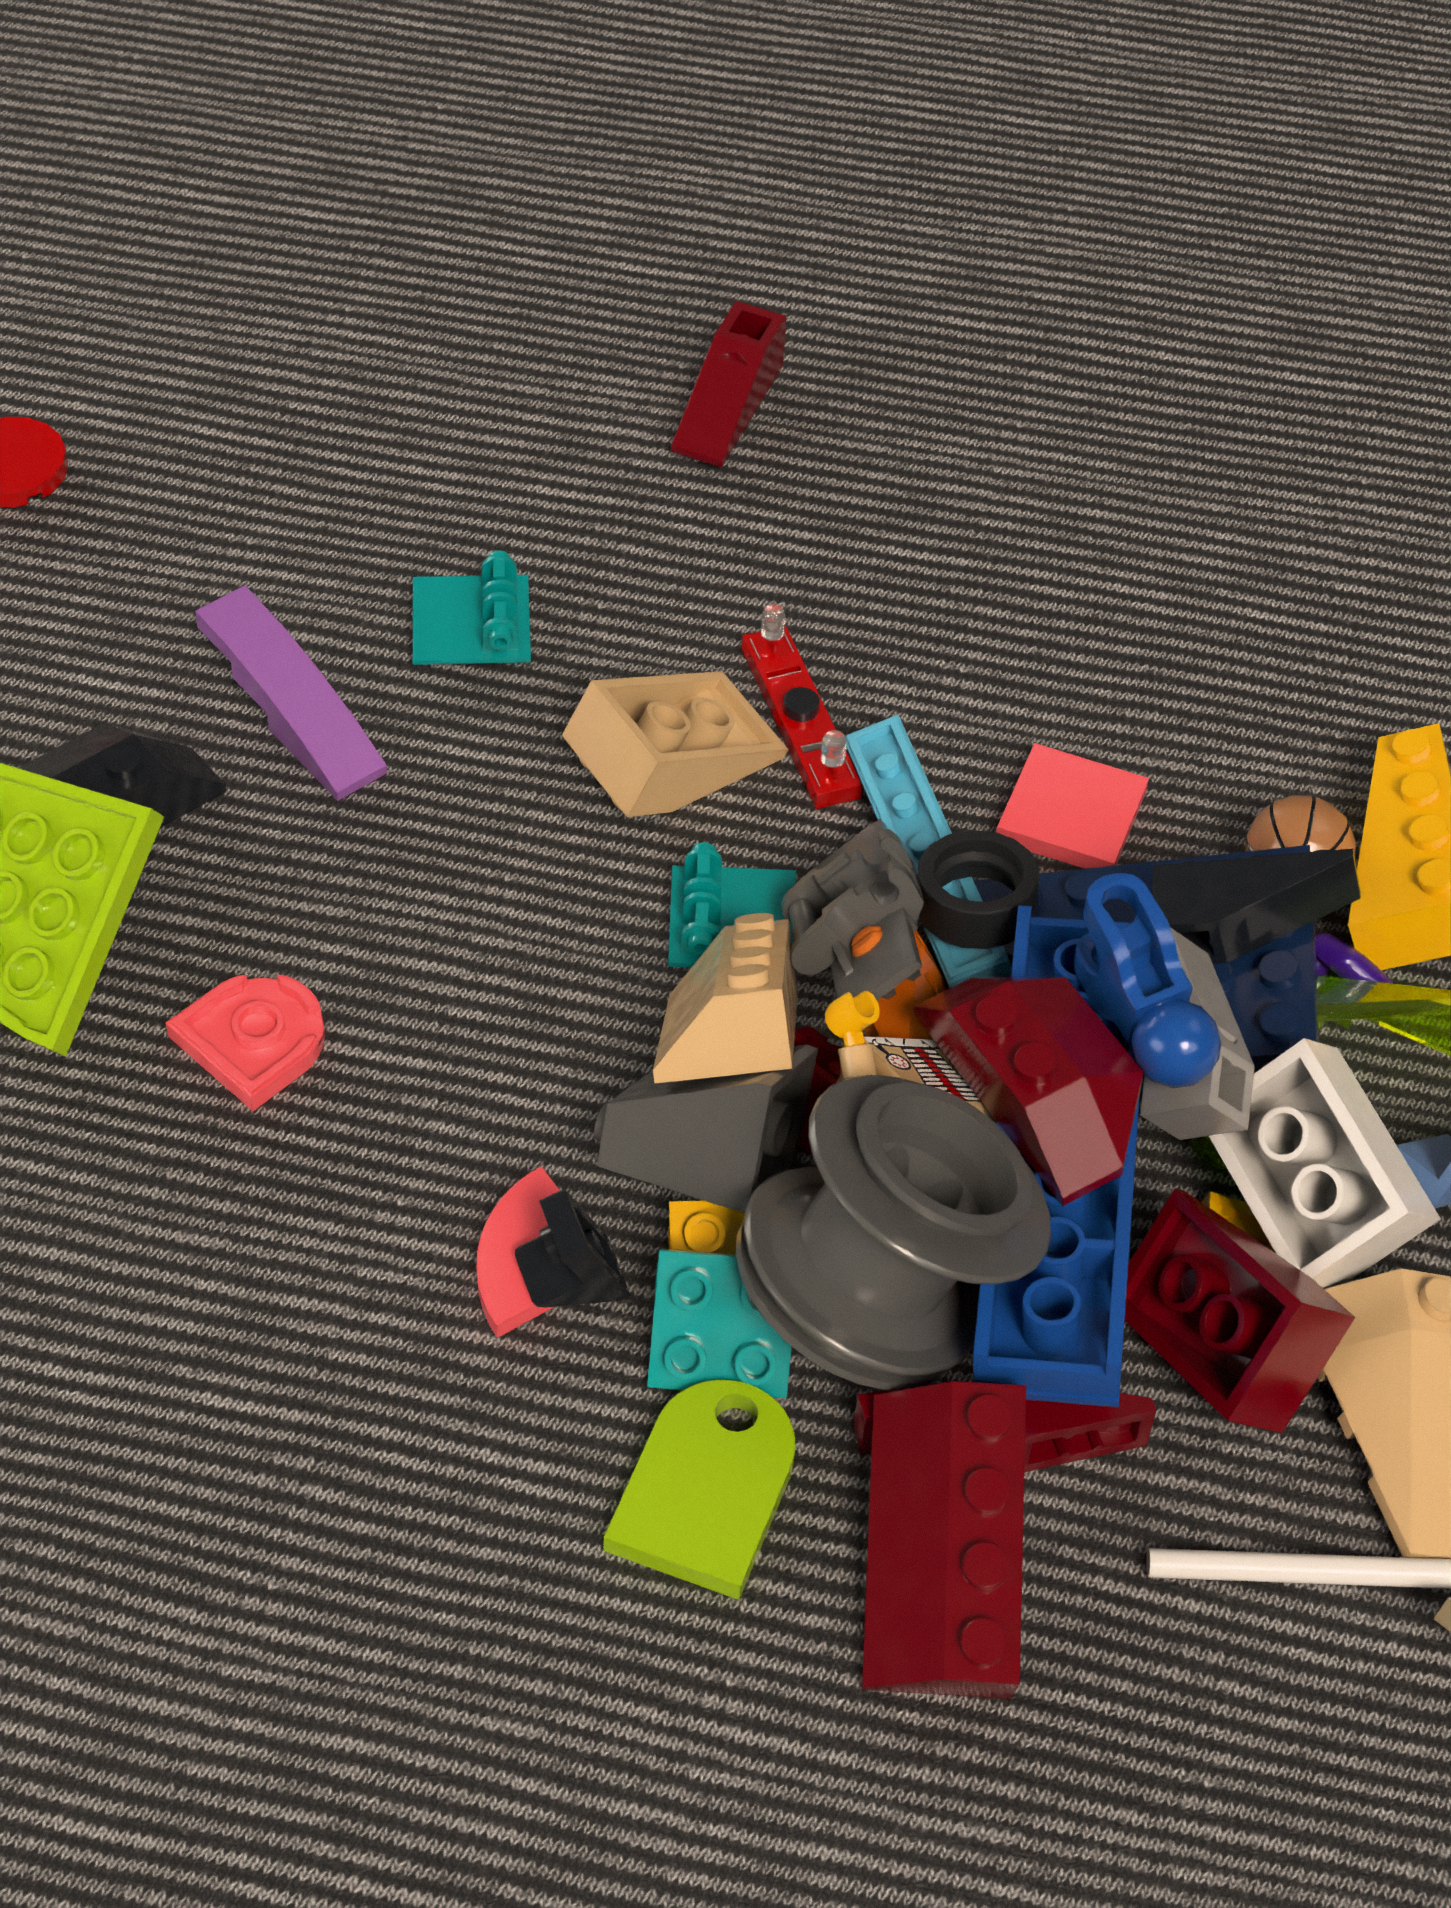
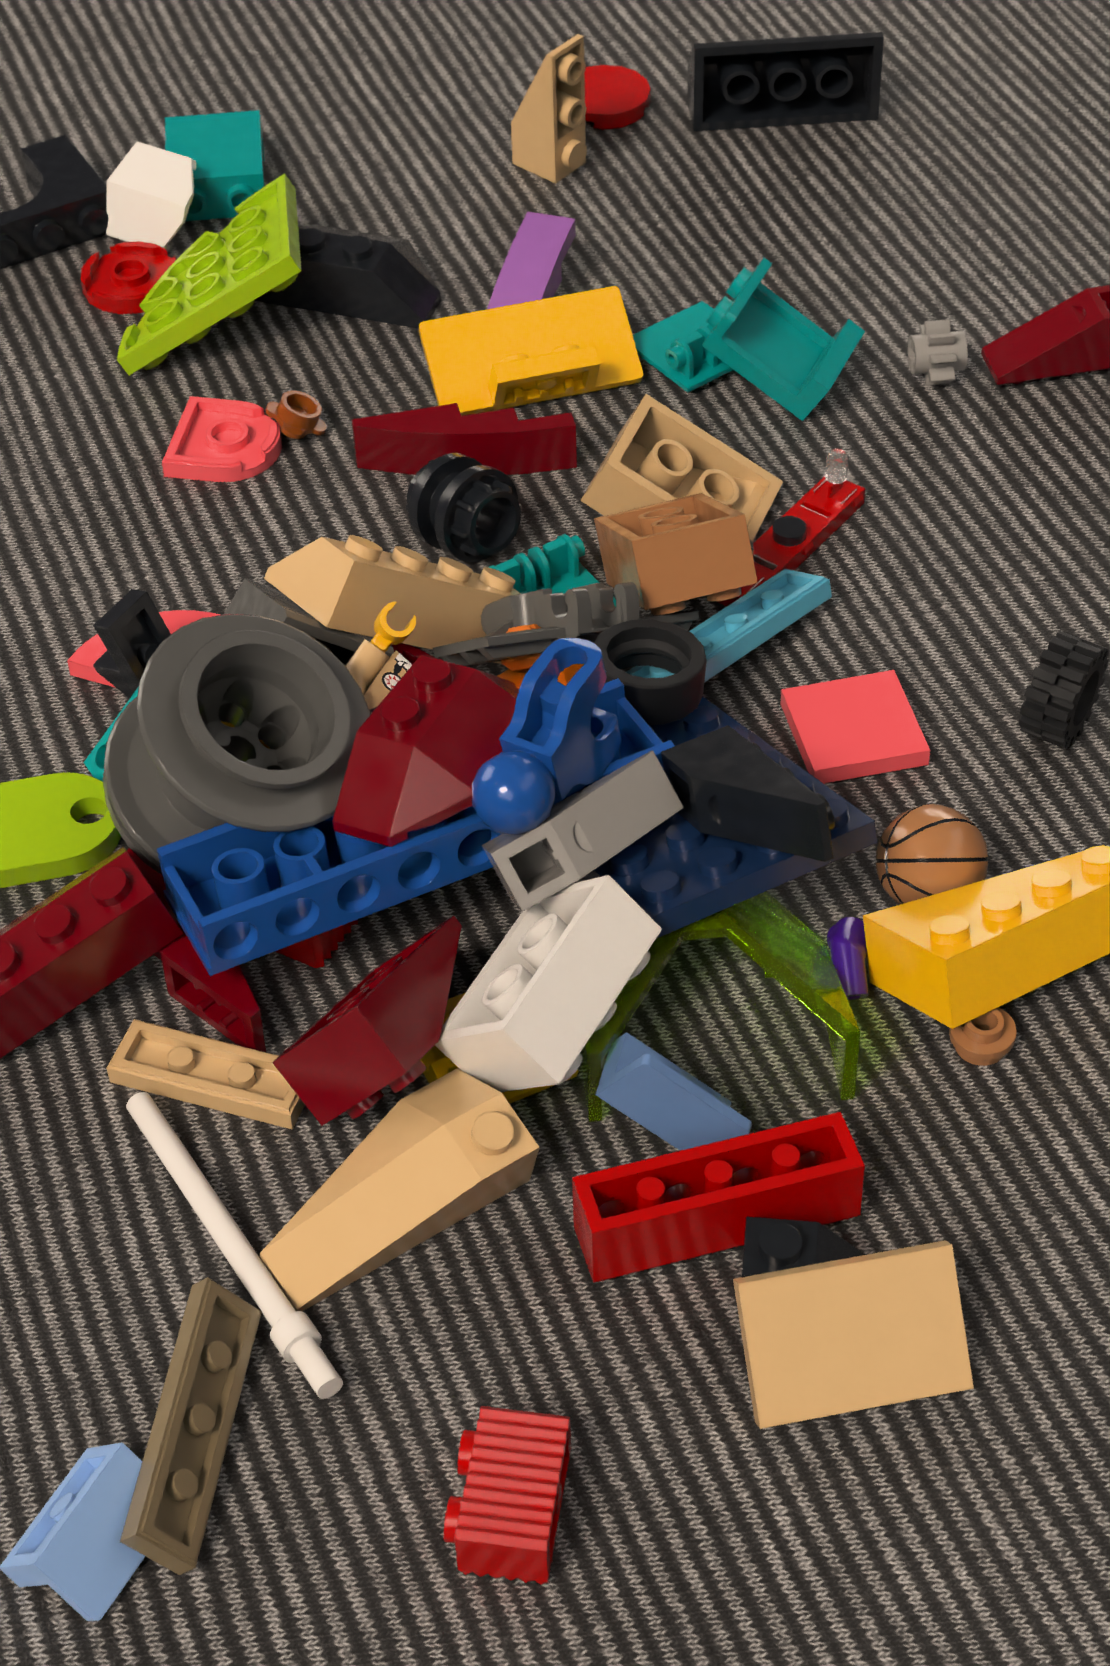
camera: 60 degrees right, 5 degrees down
(53, 508) = (550, 121): none -> tan slope
(166, 336) = (785, 81): none -> black slope
(288, 952) = (297, 414): none -> dark orange plate
(385, 733) = (531, 351): none -> yellow bracket
(457, 860) = (496, 438): none -> dark red slope
(568, 566) = (777, 344): none -> teal panel
(575, 901) = (463, 507): none -> black piece
(662, 473) = (937, 352): none -> light grey gear
(810, 785) = (677, 552): none -> medium nougat brick
(1150, 1488) = (204, 1073): none -> tan tile
(1174, 654) = (1063, 689): none -> black tyre

